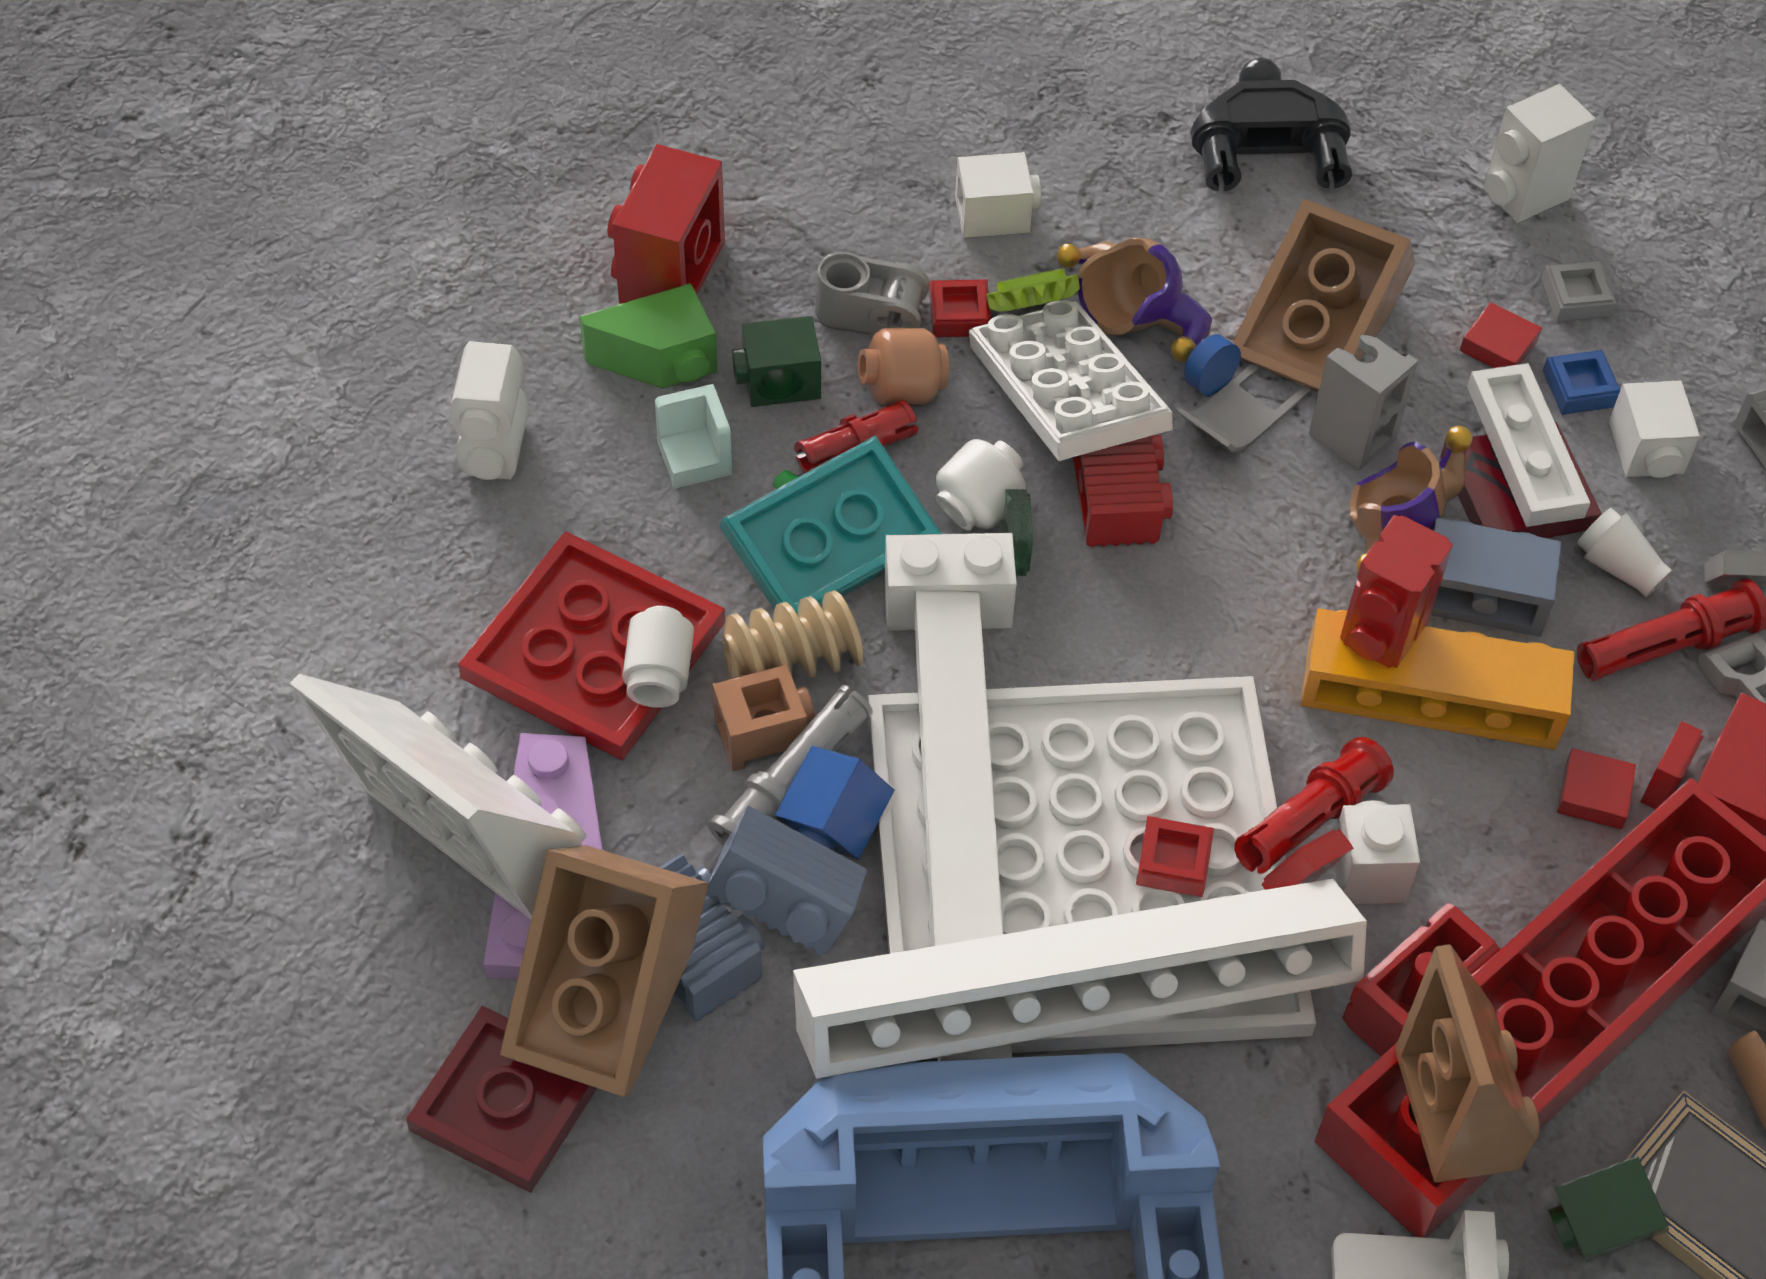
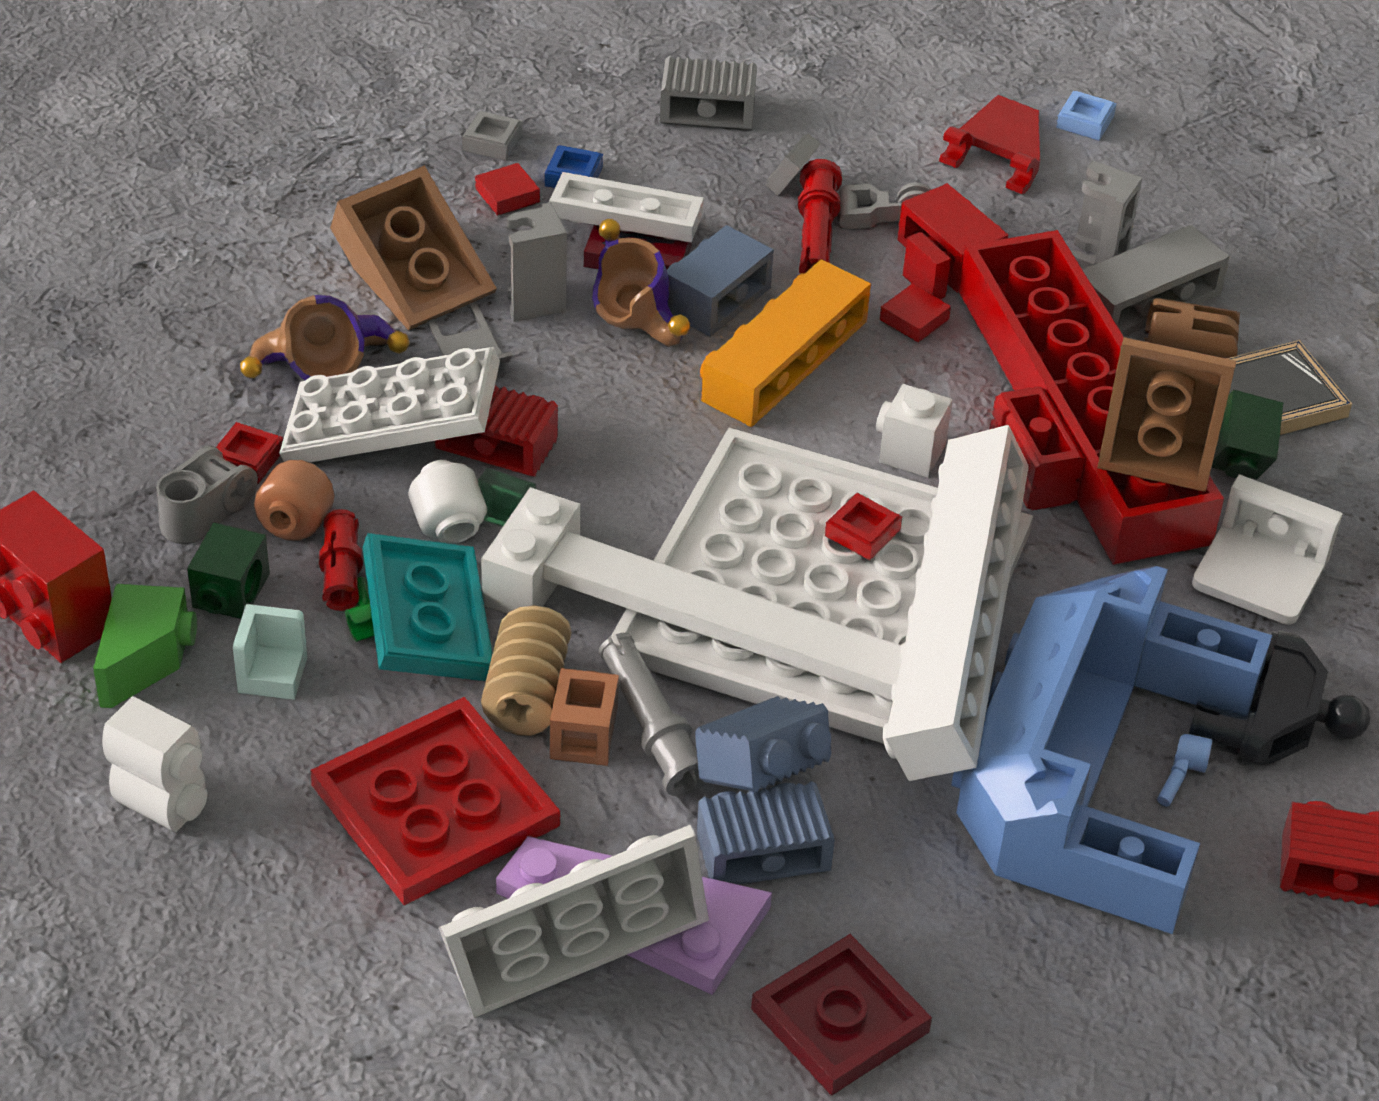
camera: 65 degrees left, 10 degrees down
(600, 965) = (793, 874): medium nougat slope -> none
(657, 656) = (501, 742): white brick -> none
(835, 801) = (701, 688): blue brick -> none
(996, 194) = (155, 380): white brick -> none
(1032, 290) = (279, 393): lime gear -> none
(1212, 364) = (424, 333): blue tile -> none
(1271, 117) = (212, 201): black connector -> none
(1309, 861) = (919, 456): red tile -> none
(1359, 770) = (854, 429): red pin -> none
(1395, 591) = (747, 297): red brick -> none
(1538, 153) = (375, 83): white brick -> none
(1624, 552) = (738, 211): white cone -> none
(1653, 429) = (649, 151): white brick -> none

